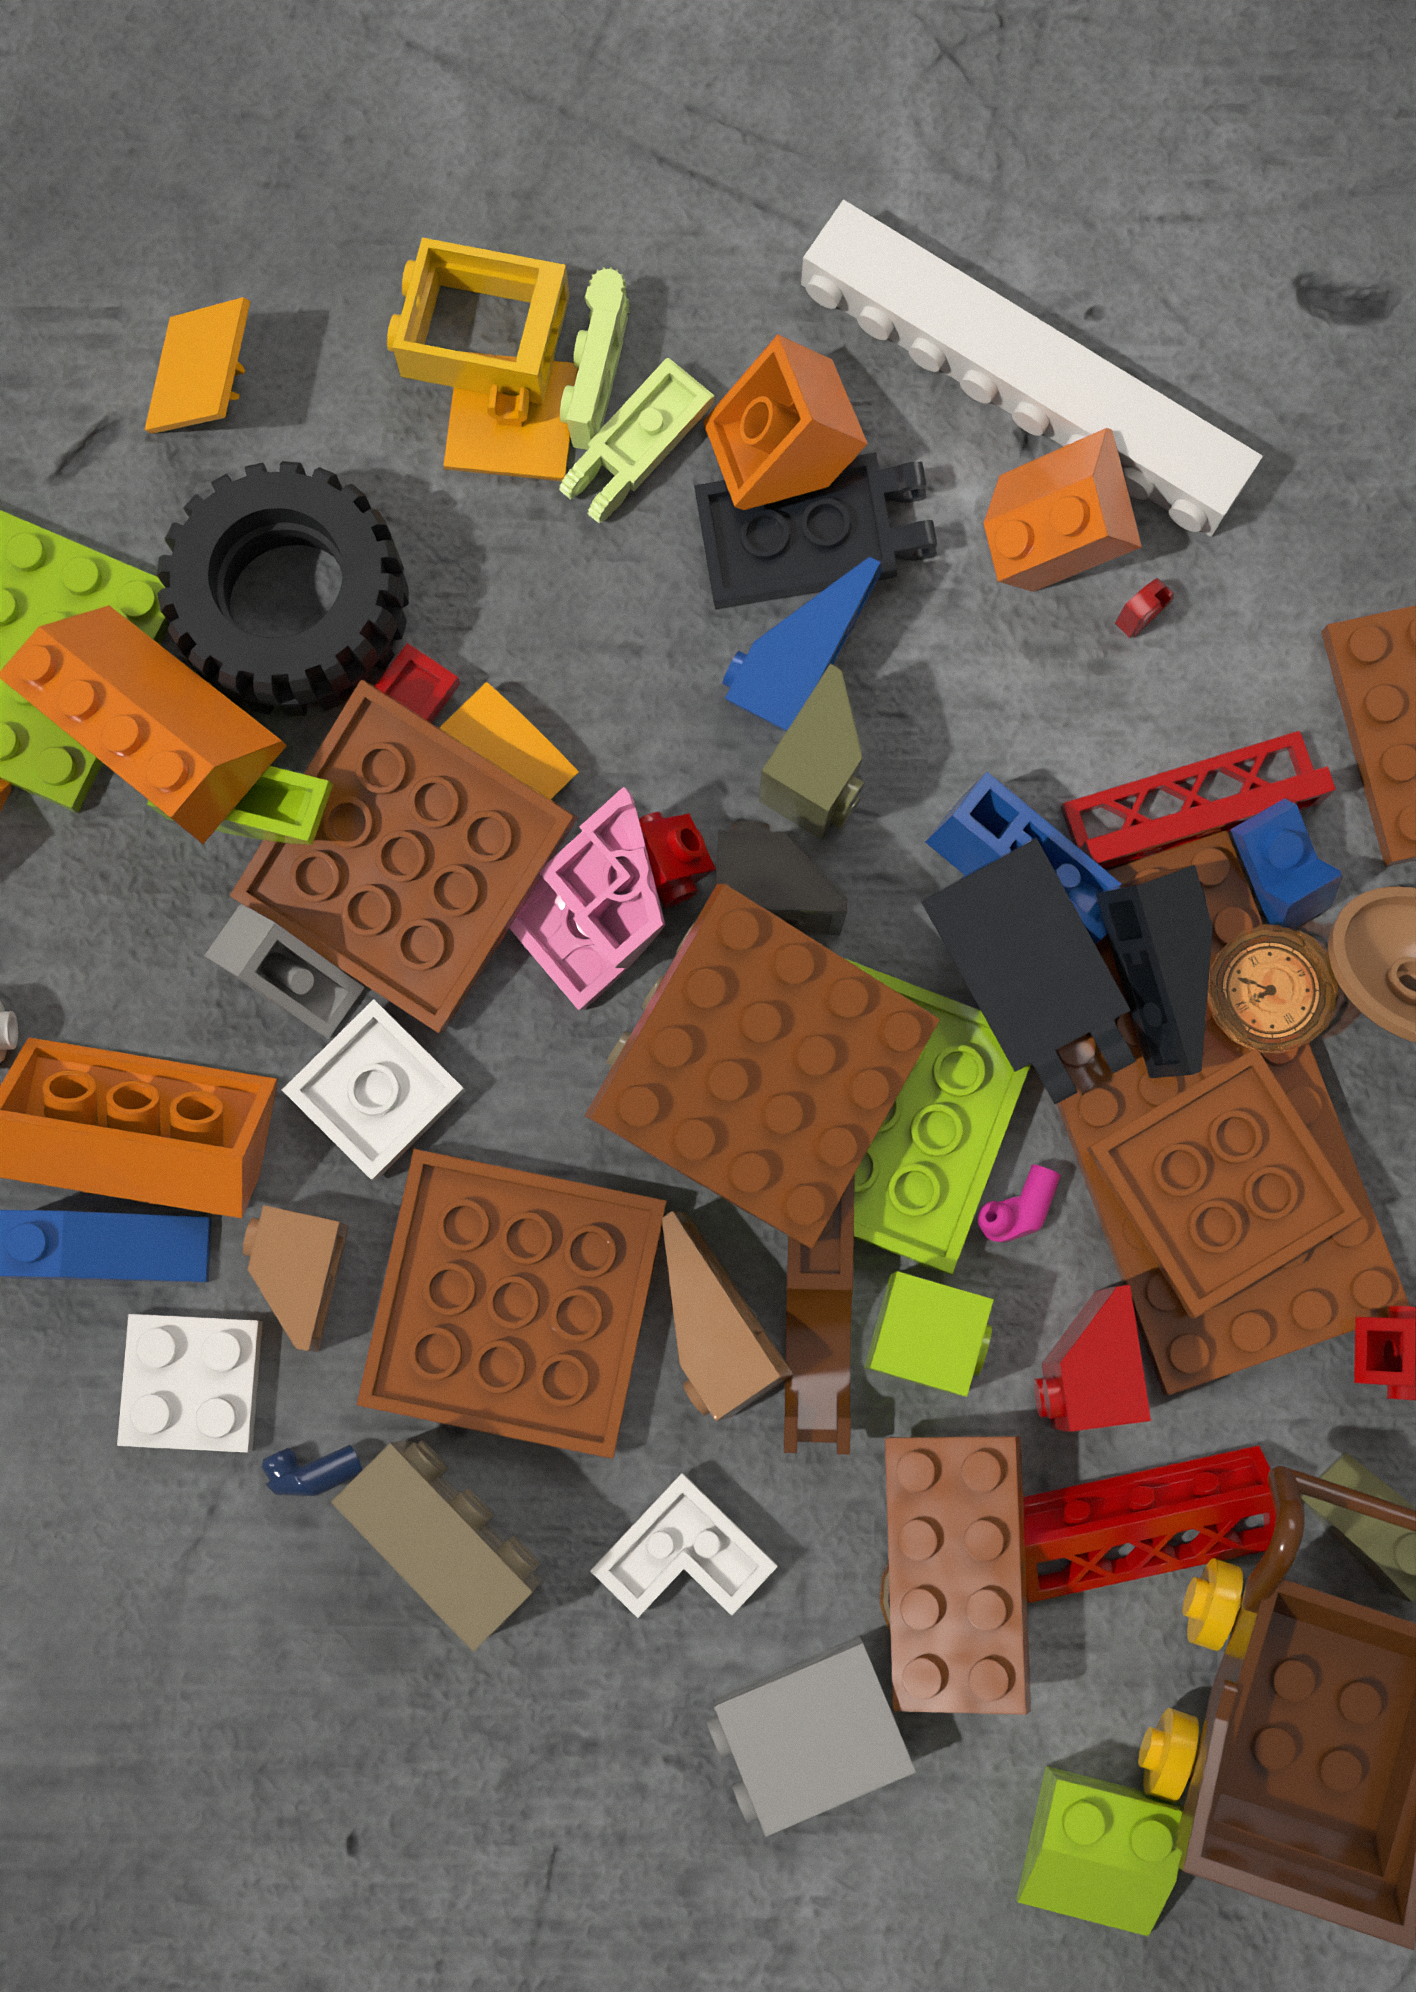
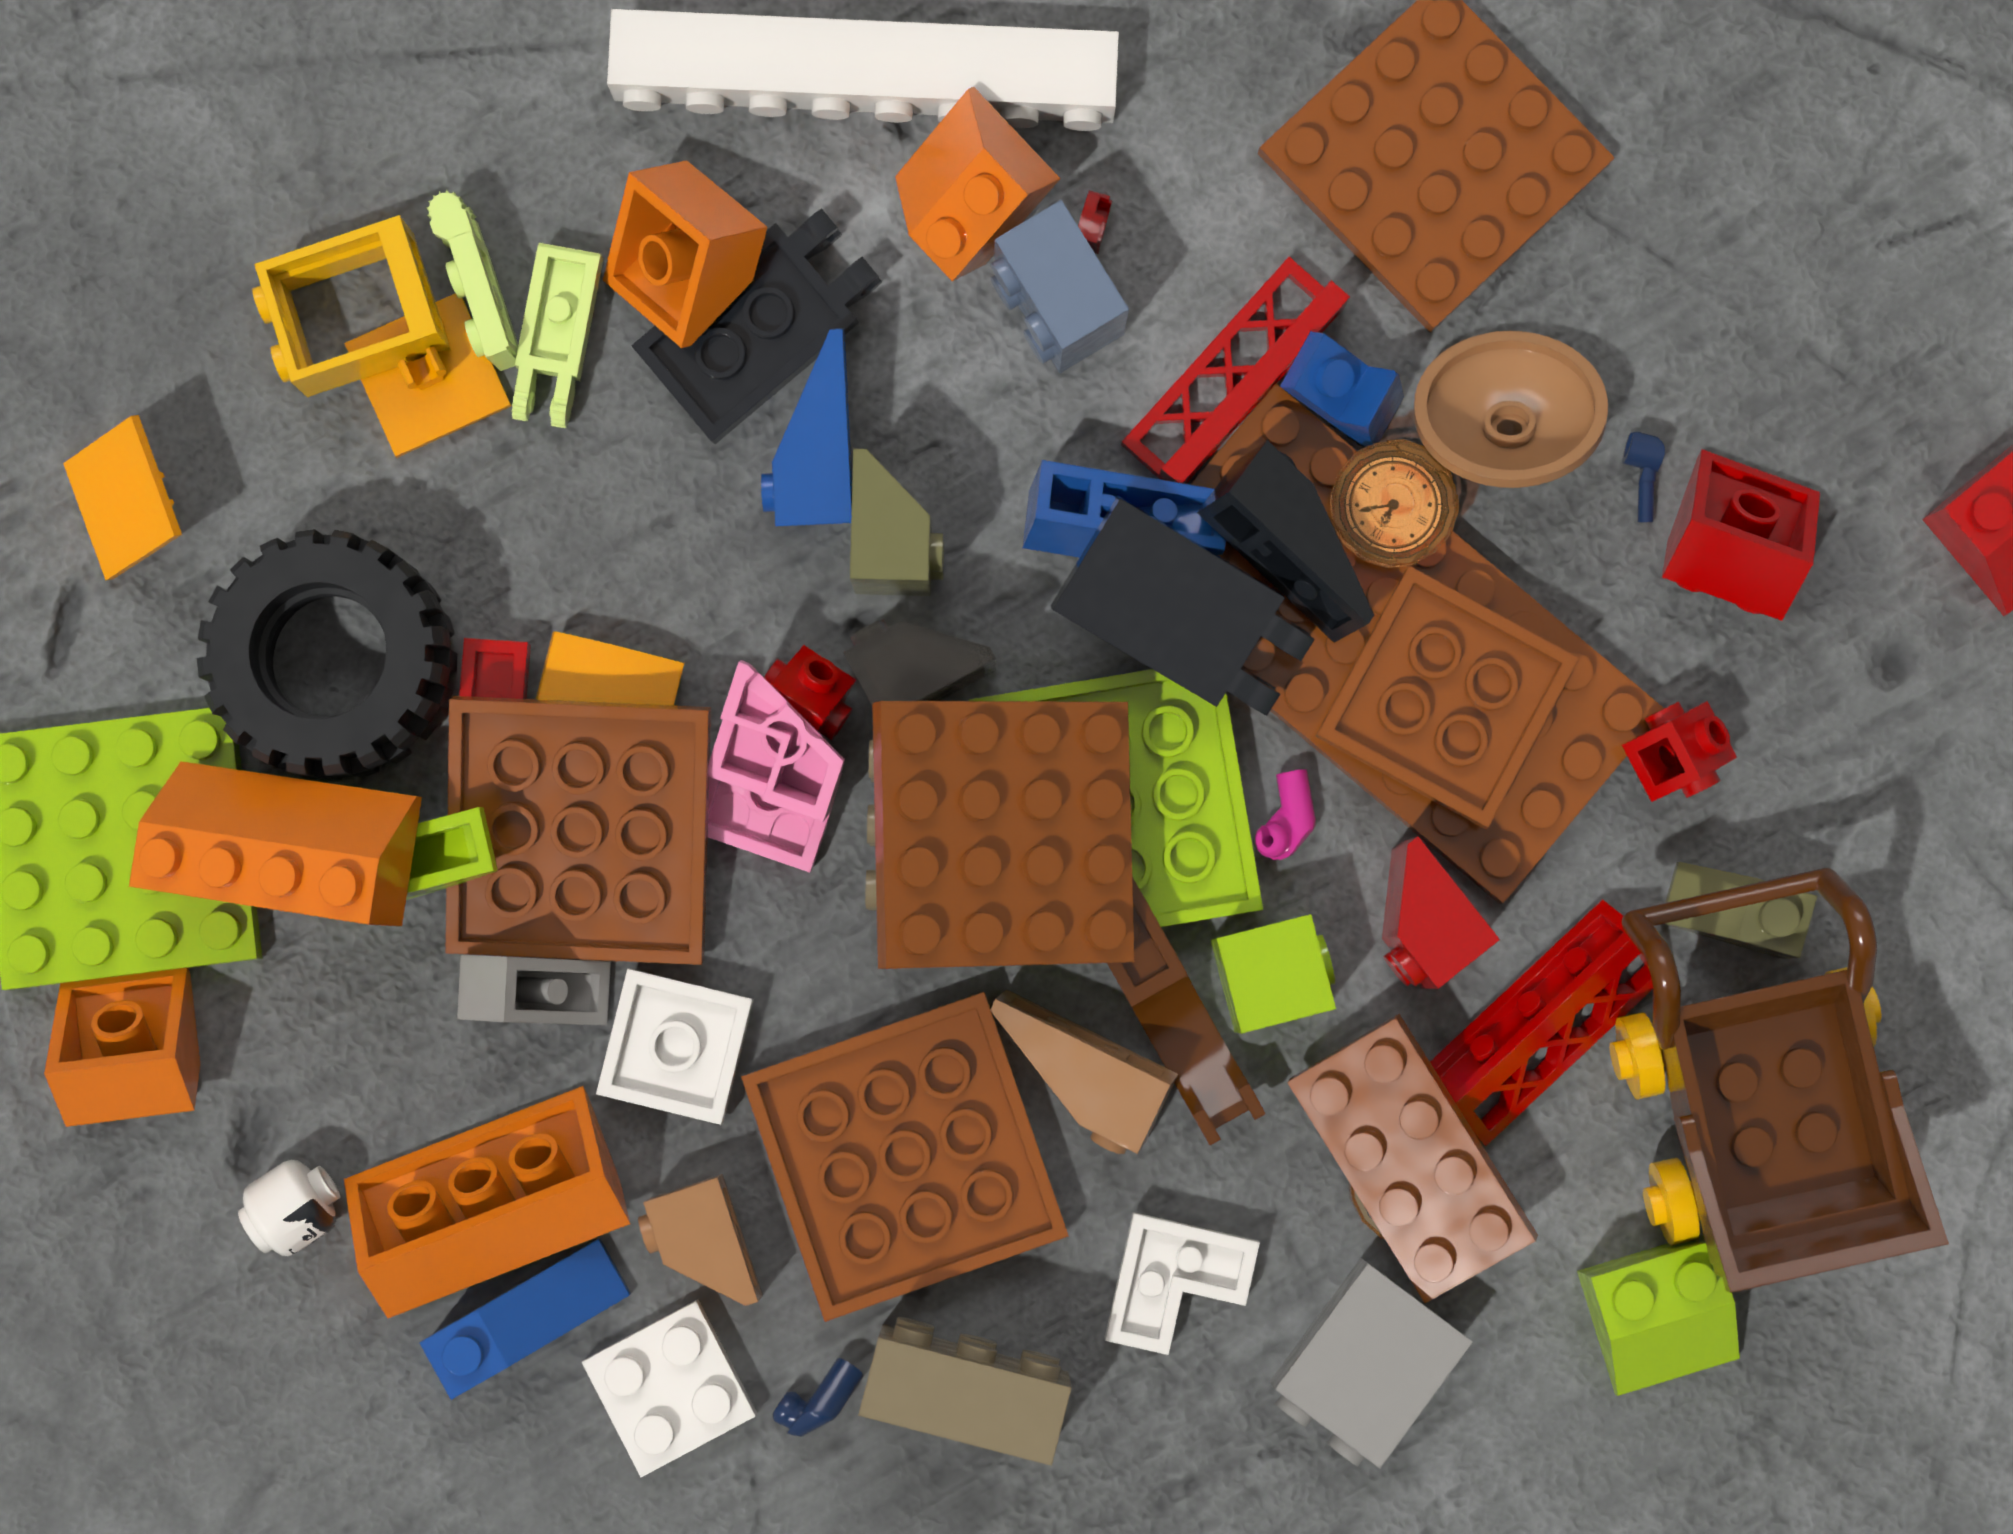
camera: 35 degrees left, 5 degrees up
(1086, 638) = (1058, 287): none -> sand blue brick

